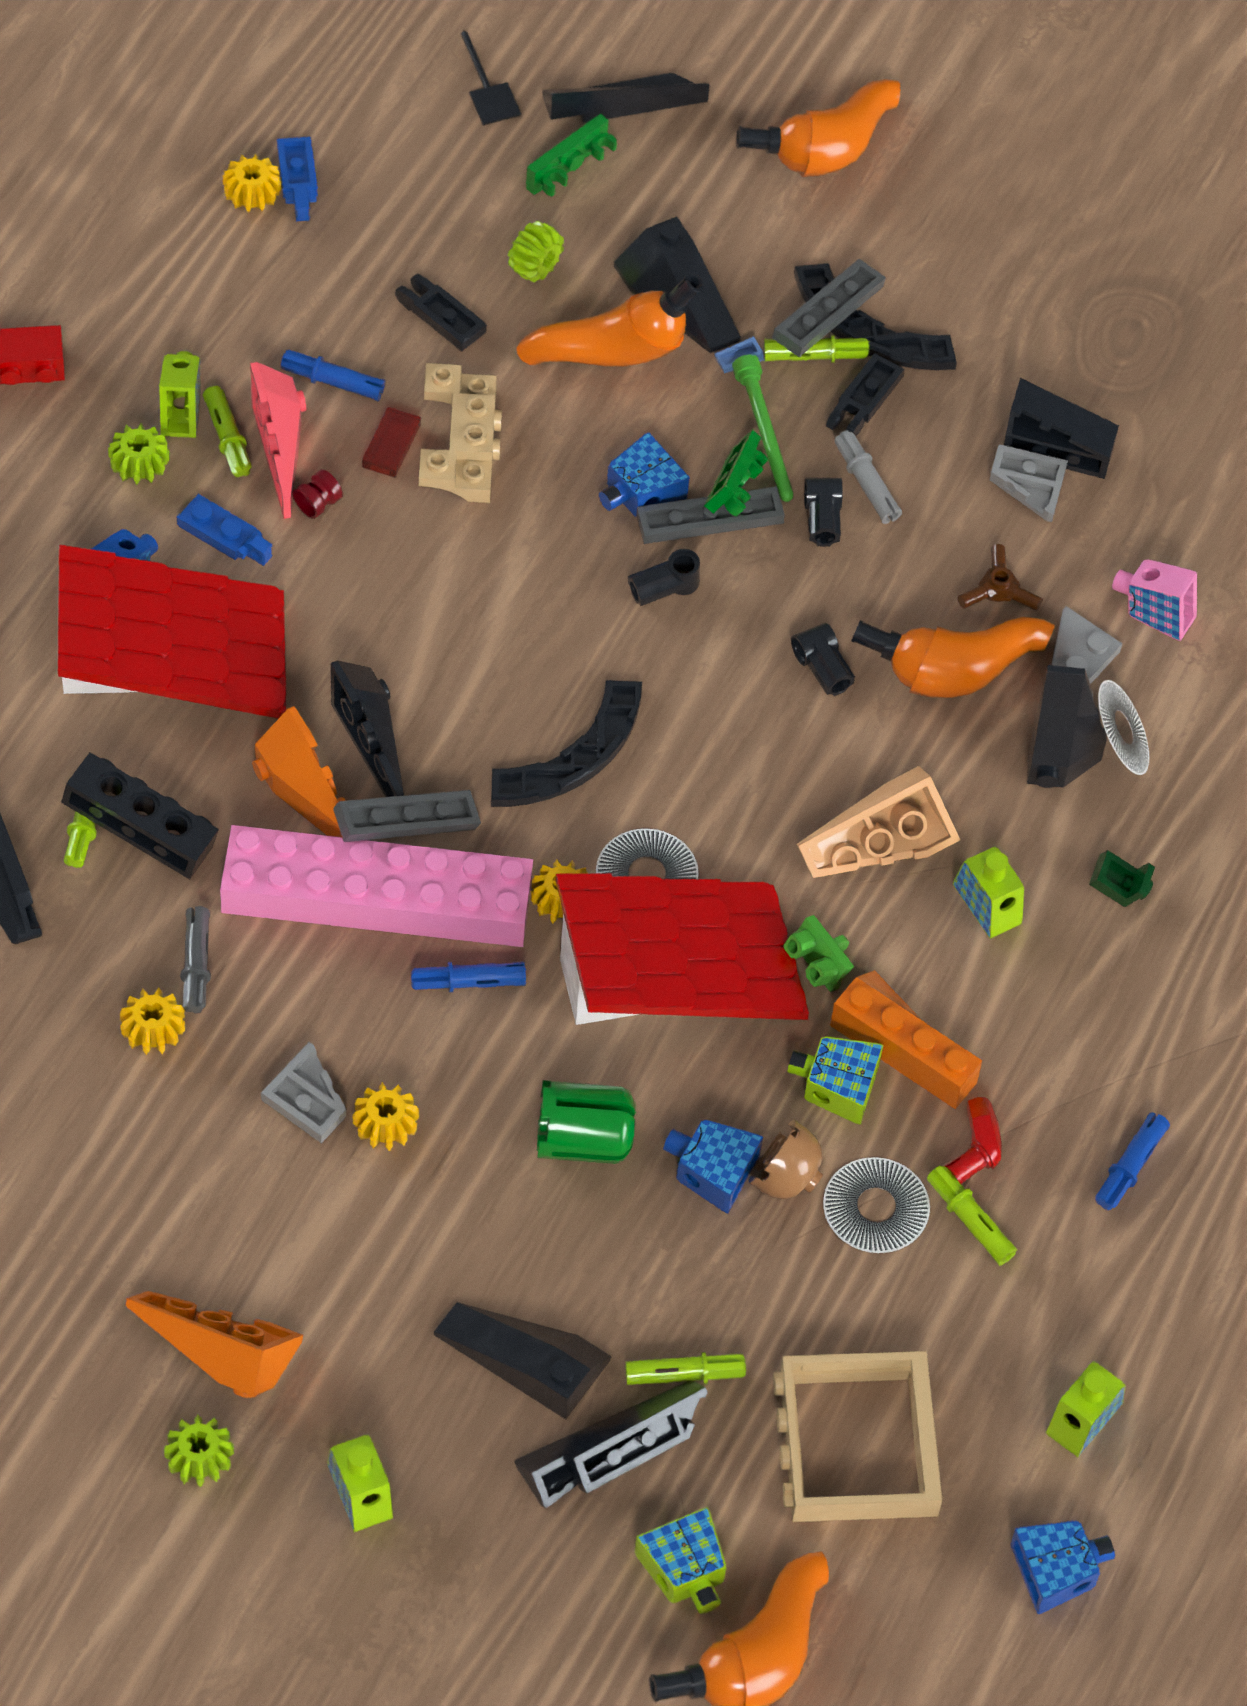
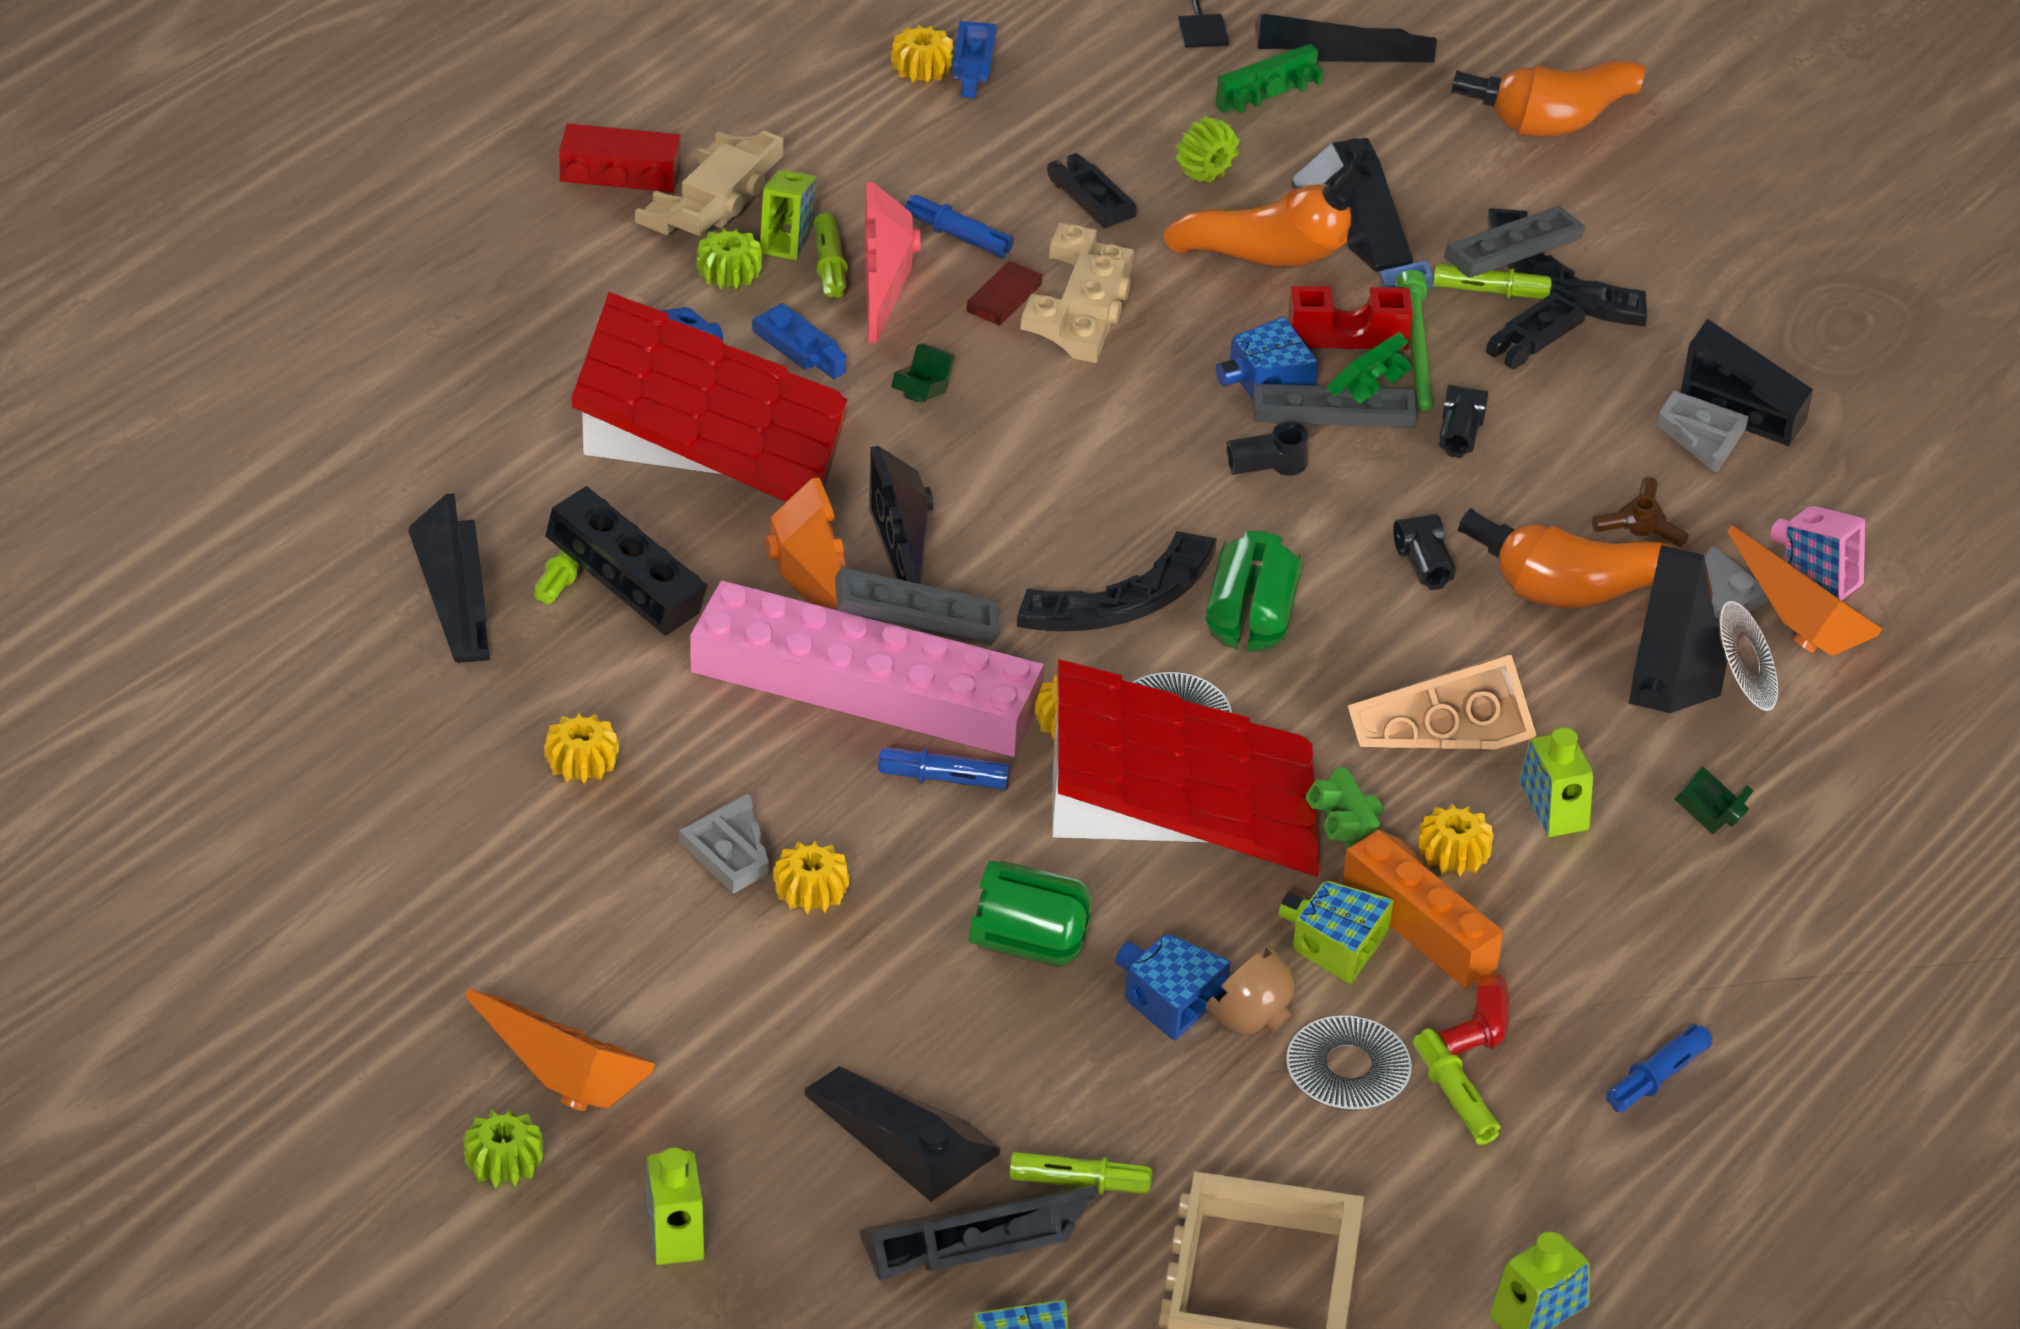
camera: 15 degrees right, 15 degrees down
(109, 375) = (718, 188): none -> tan bracket
(195, 971) = (643, 714): dark grey axle -> none
(318, 493) = (908, 321): dark red wheel -> none
(347, 552) = (927, 374): none -> dark green bracket
(673, 720) = (1271, 583): none -> green cylinder
(724, 422) = (1325, 326): none -> red arch
(861, 466) = (1514, 388): light grey axle -> none
(917, 964) = (1455, 840): none -> yellow gear
(1164, 664) = (1802, 603): none -> orange wedge

